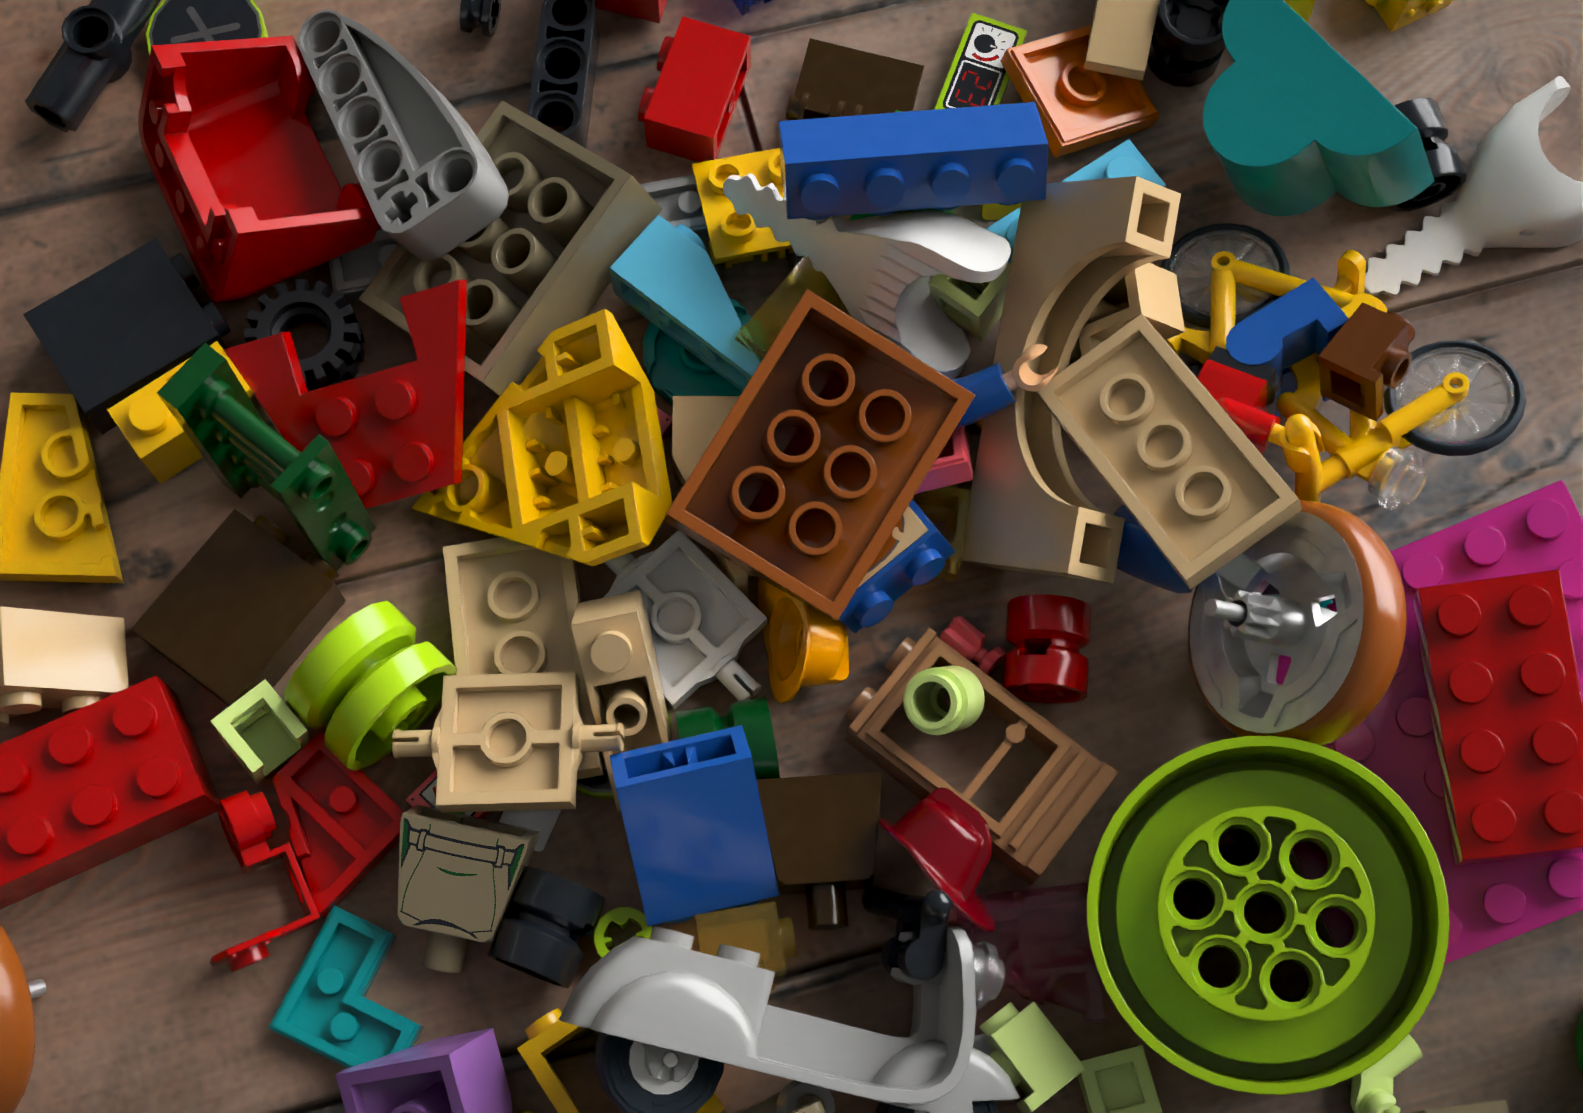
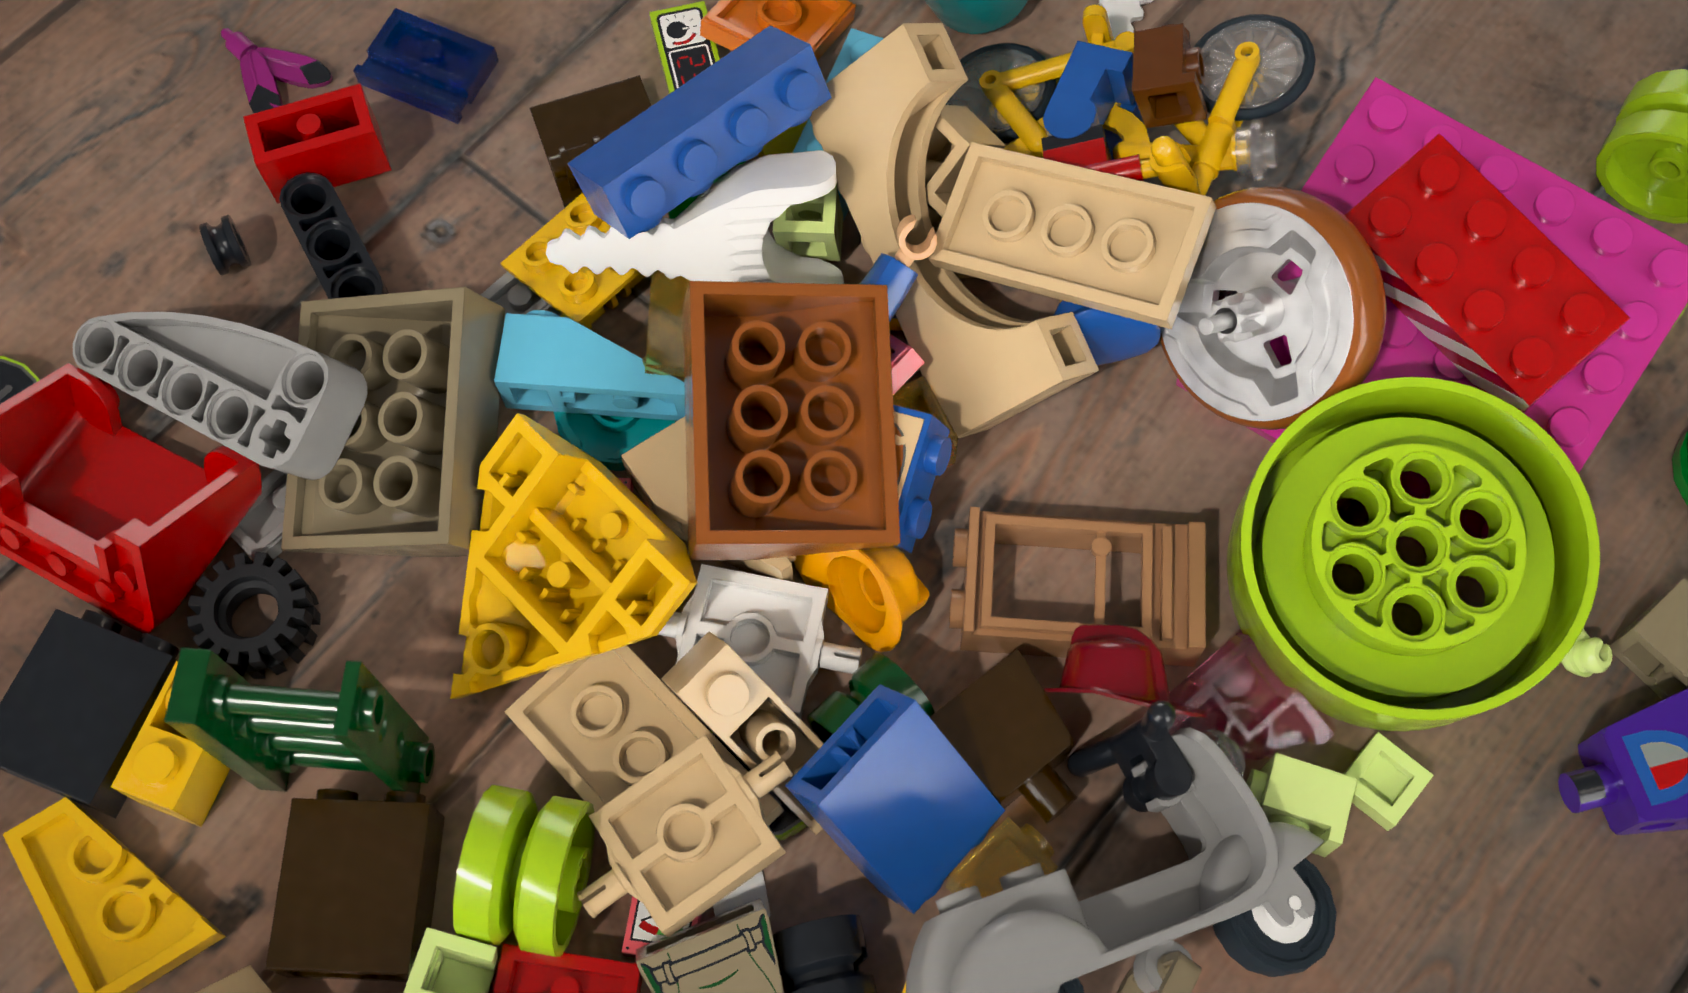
camera: 30 degrees left, 5 degrees down
(389, 428) = (393, 620): red wing -> none
(621, 918) = (880, 927): lime bush -> none
(696, 90) = (462, 203): red brick -> none
(926, 705) = (1017, 573): yellowish green brick -> none
(969, 643) = (1006, 500): coral piece -> none
(1047, 644) = (1069, 458): red wheel -> none

